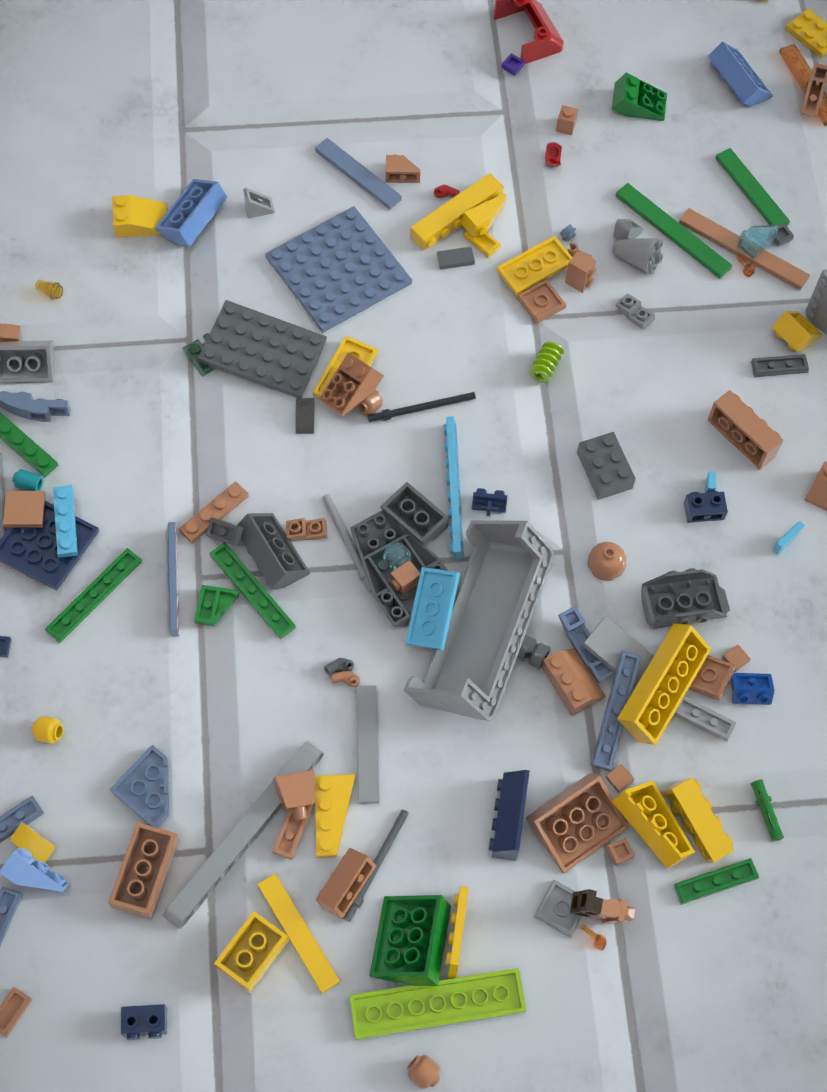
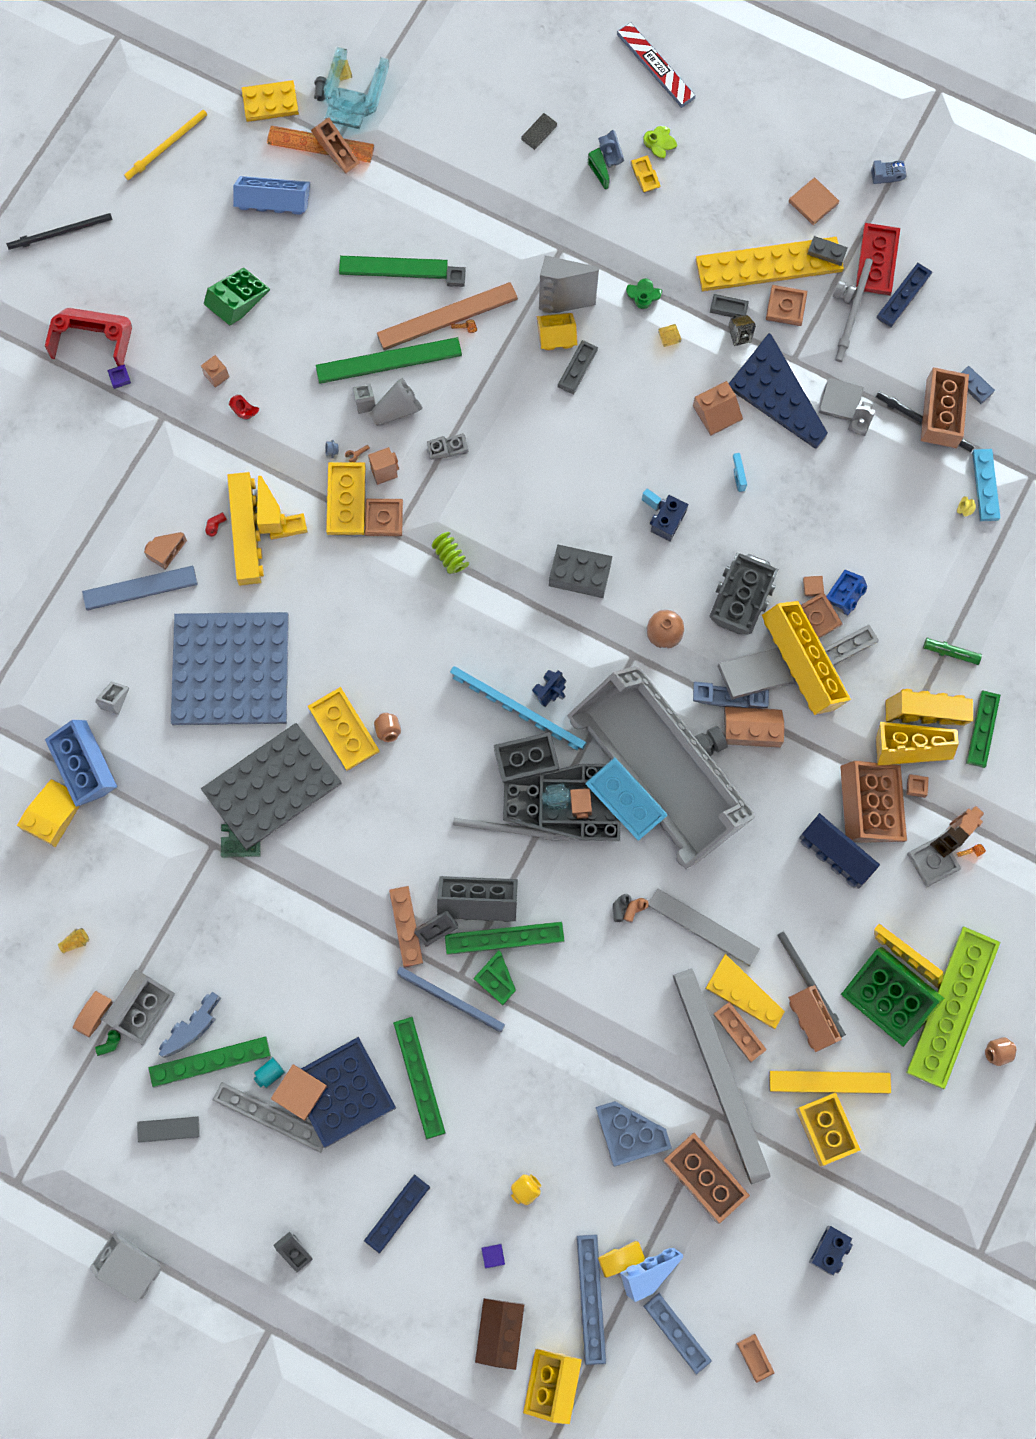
camera: 55 degrees left, 10 degrees up
(65, 521) = (334, 1062): medium azure plate -> none
(296, 792) = (718, 1011): nougat torso -> none
(305, 415) = (362, 790): clear smoke tile -> none
(306, 530) = (475, 857): nougat slope -> none
(350, 385) = (367, 733): nougat slope -> none
(387, 414) = (409, 719): black bar -> none
(455, 257) = (289, 560): dark grey tile -> none
(619, 695) = (798, 706): sand blue tile -> none
(620, 778) = (856, 745): nougat tile -> none
(745, 429) = (624, 437): nougat brick -> none
(757, 238) = (450, 300): clear light blue slope -> none

